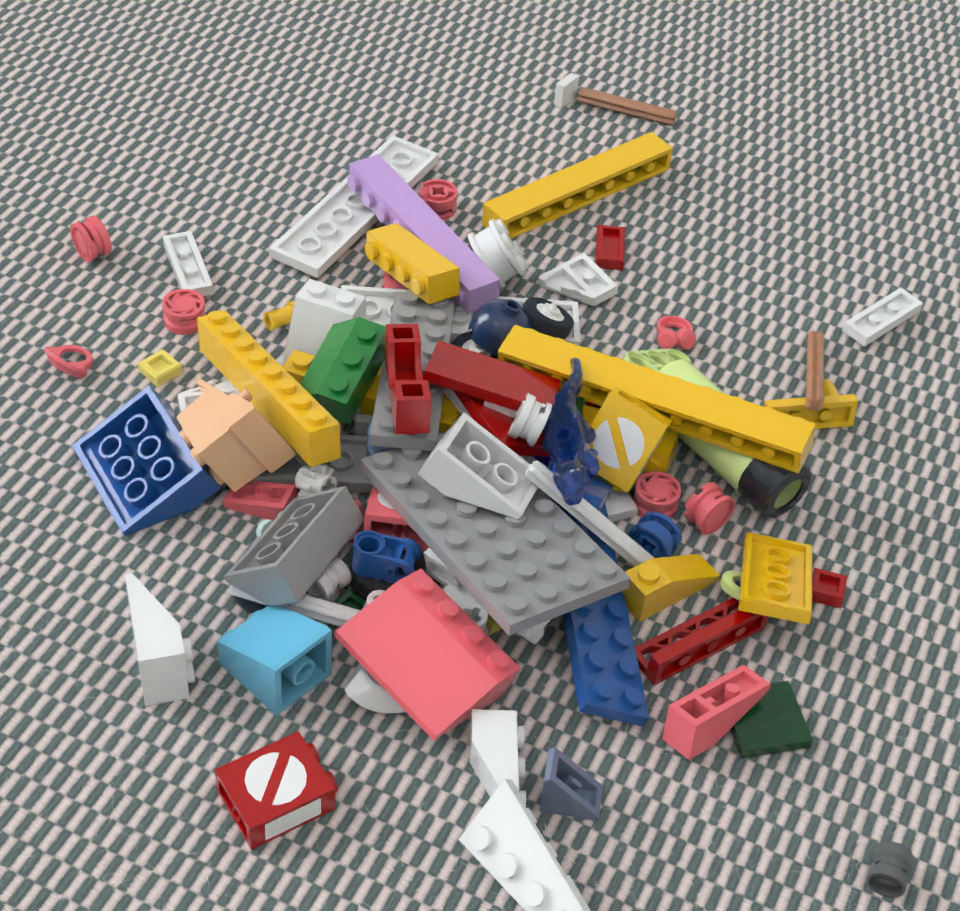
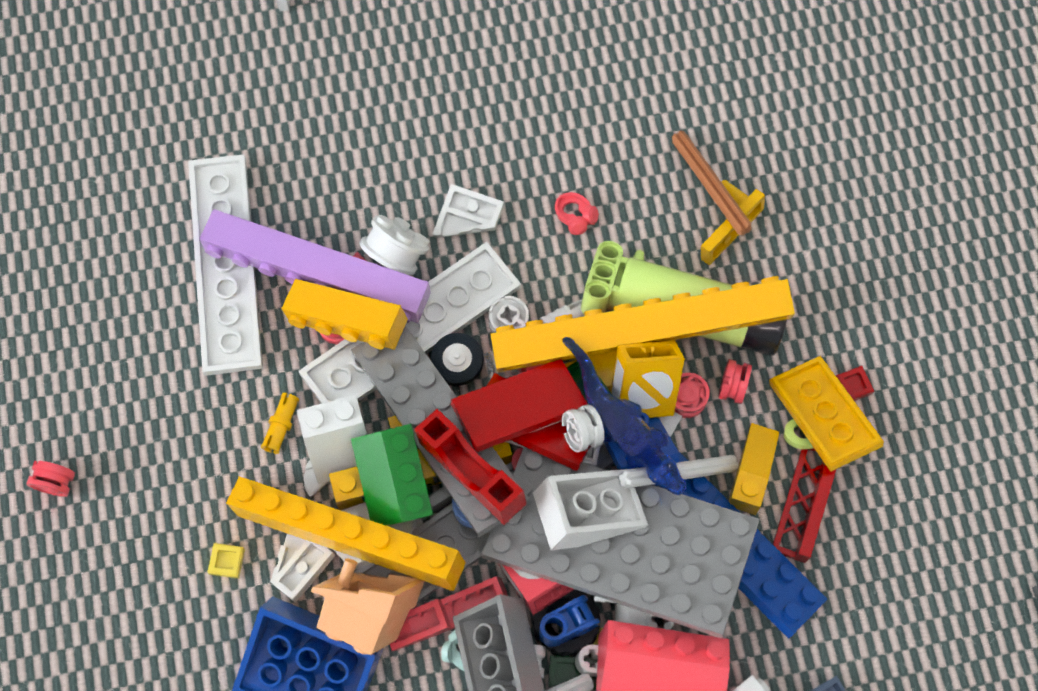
camera: 35 degrees left, 25 degrees up
(74, 369) = (163, 619): coral piece -> none
(182, 312) = (194, 491): coral wheel -> none
(187, 263) = (151, 439): white plate -> none
(314, 479) = (462, 593): white gear -> none
(440, 197) = (284, 206): coral wheel -> none
(495, 321) = (465, 329): dark blue cylinder -> none
(548, 317) = (487, 288): black wheel -> none
(579, 185) = (382, 106): yellow brick -> none
(610, 247) = (457, 154): red tile -> none
(657, 534) = (719, 440): blue wheel -> none
(712, 710) = (868, 561): coral slope -> none
(772, 724) = (895, 535): dark green tile -> none
(882, 316) = (711, 78): white plate -> none

